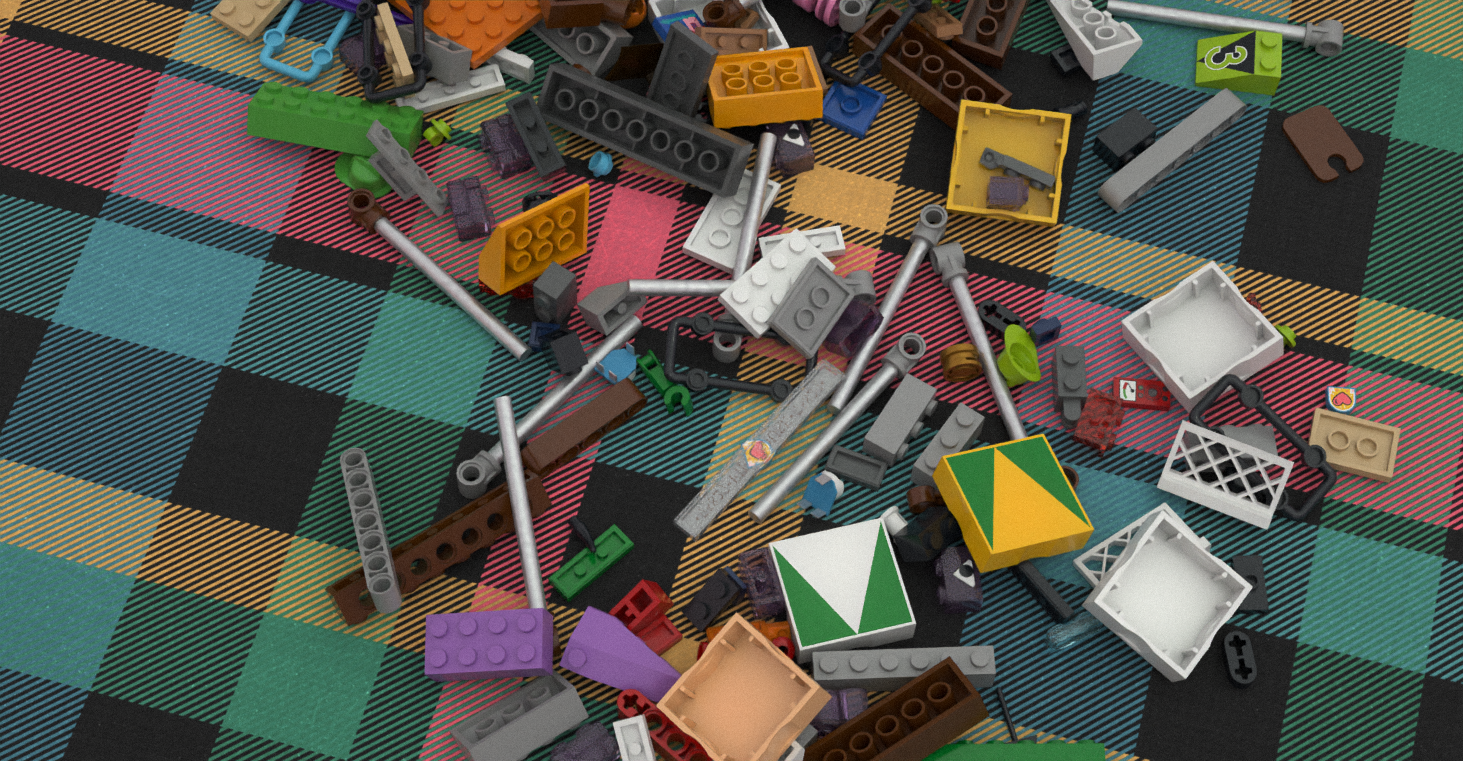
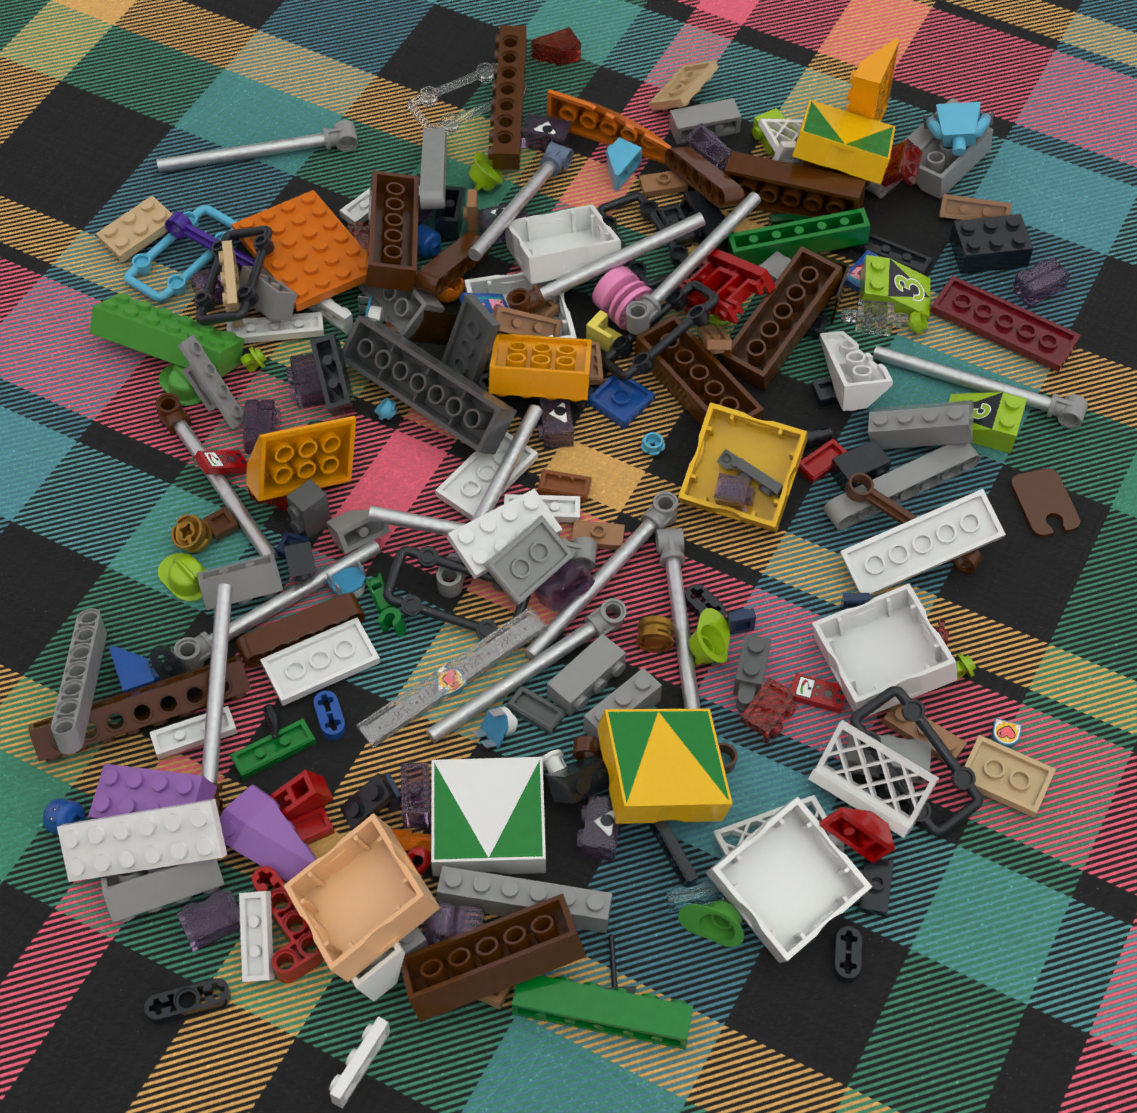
camera: 15 degrees right, 5 degrees down
(395, 680) = (62, 812): none -> blue head
(416, 507) = (132, 669): none -> blue slope
(433, 344) = (191, 534): none -> pearl gold wheel
(436, 392) = (180, 576): none -> lime piece
(441, 257) = (221, 462): none -> red tile
(459, 326) = (222, 523): none -> reddish brown plate
(463, 492) = (174, 663): none -> black beam
(494, 688) = (142, 840): none -> white plate
(495, 566) = (187, 734): none -> white plate
(519, 378) = (249, 580): none -> light grey brick
(555, 54) = (371, 311): none -> piece
(614, 459) = (320, 661): none -> white plate
(646, 512) = (324, 717): none -> blue beam
(809, 35) = (598, 331): none -> light yellow panel
(817, 215) = (564, 484): none -> dark orange plate
(879, 263) = (606, 535): none -> medium nougat plate
(899, 146) = (652, 439): none -> medium azure plate
(1082, 138) = (819, 462): none -> red tile
(1101, 653) = (714, 921): none -> bright green piece
(1155, 289) = (852, 600): none -> dark blue tile
(1179, 80) = (922, 424): none -> light grey slope
(1213, 214) = (923, 543): none -> white plate
(1229, 533) = (860, 831): none -> red slope
(1231, 409) = (910, 730): none -> medium nougat plate
(1254, 218) = (966, 563): none -> reddish brown piece

